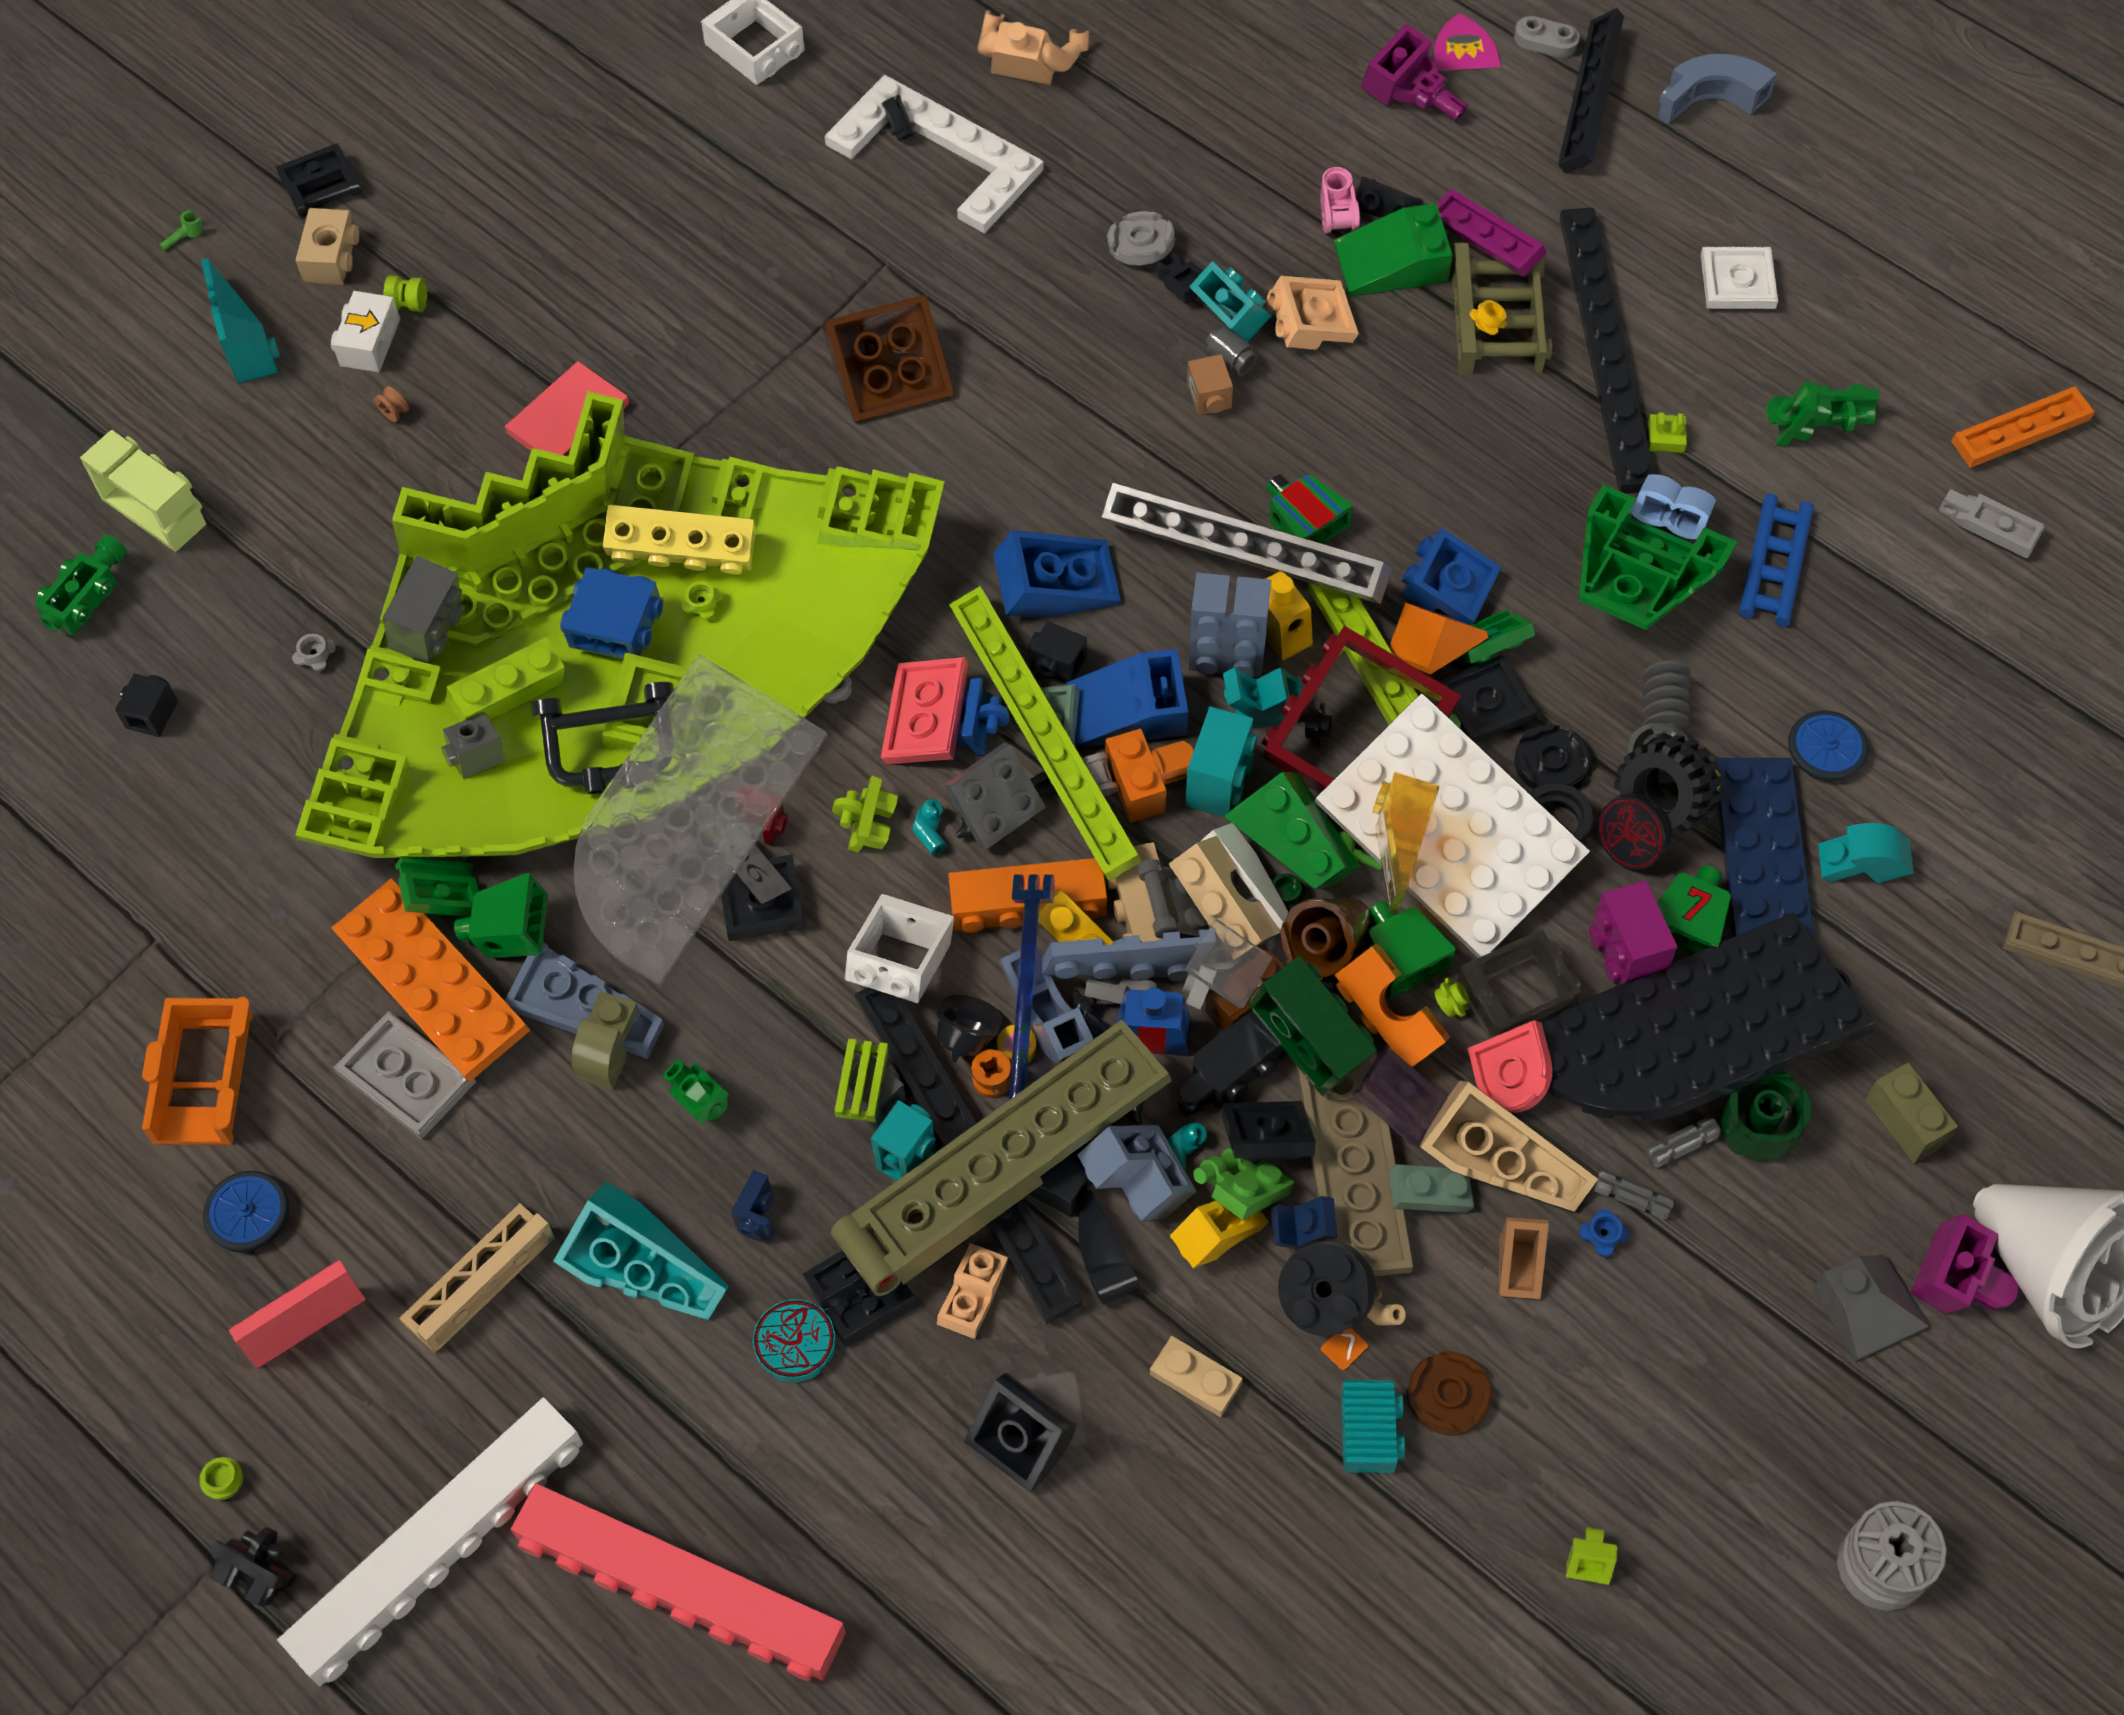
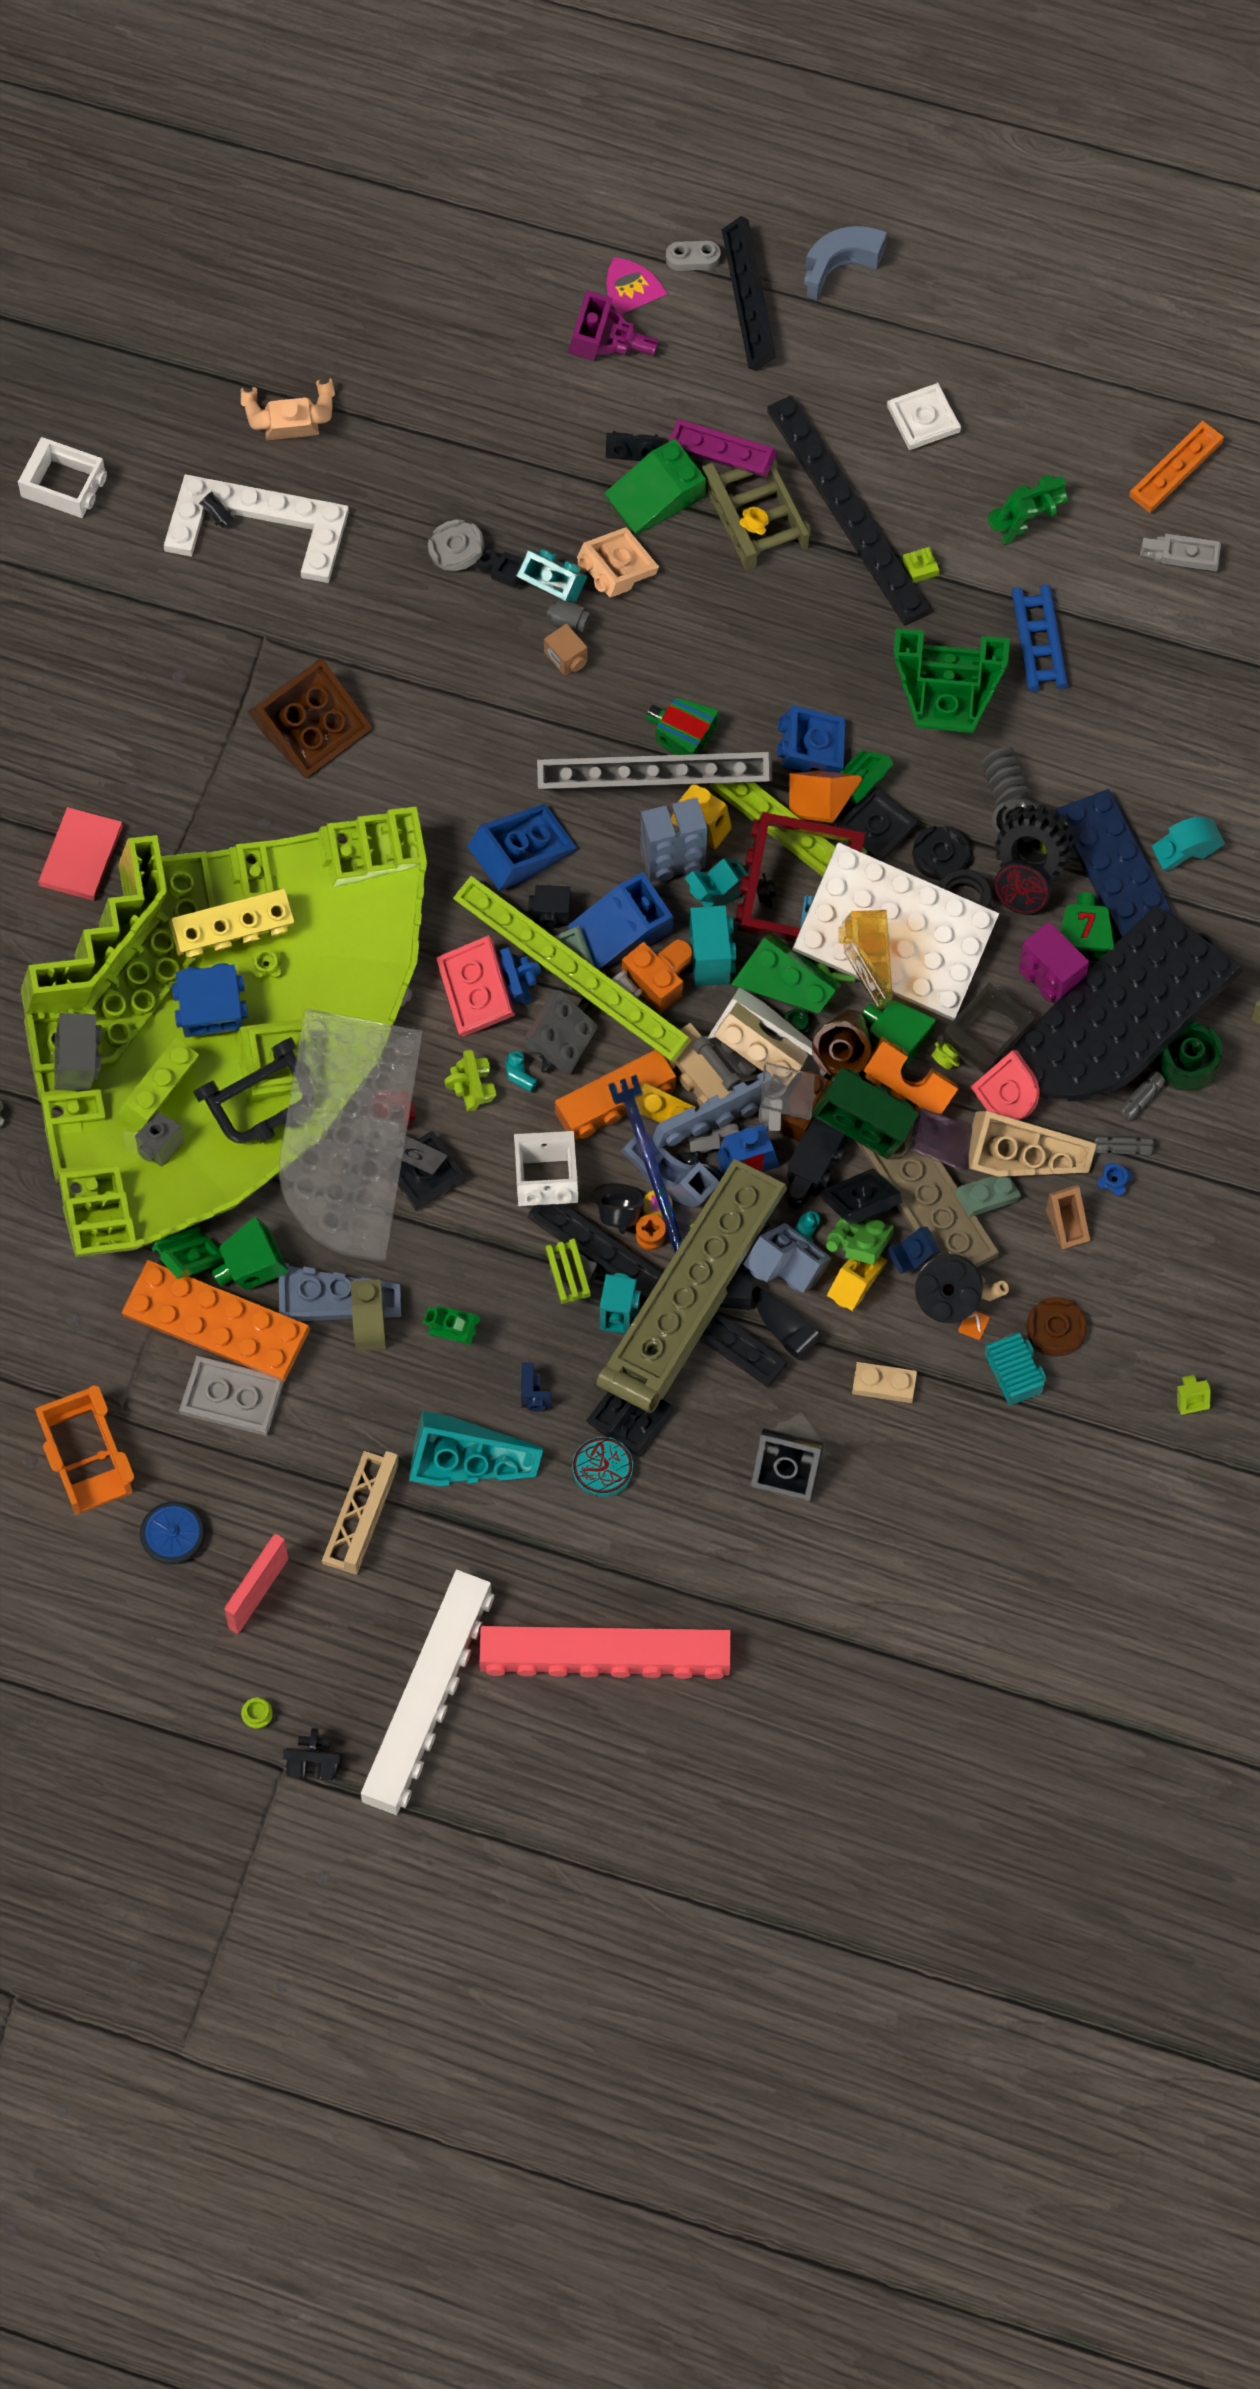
camera: 25 degrees left, 5 degrees up
(972, 1291) = (707, 1386): light nougat slope -> none
(1338, 201) = (596, 465): bright pink piece -> none
(1676, 507) = (951, 624): light blue brick -> none
(1828, 745) = (1130, 769): blue wheel -> none

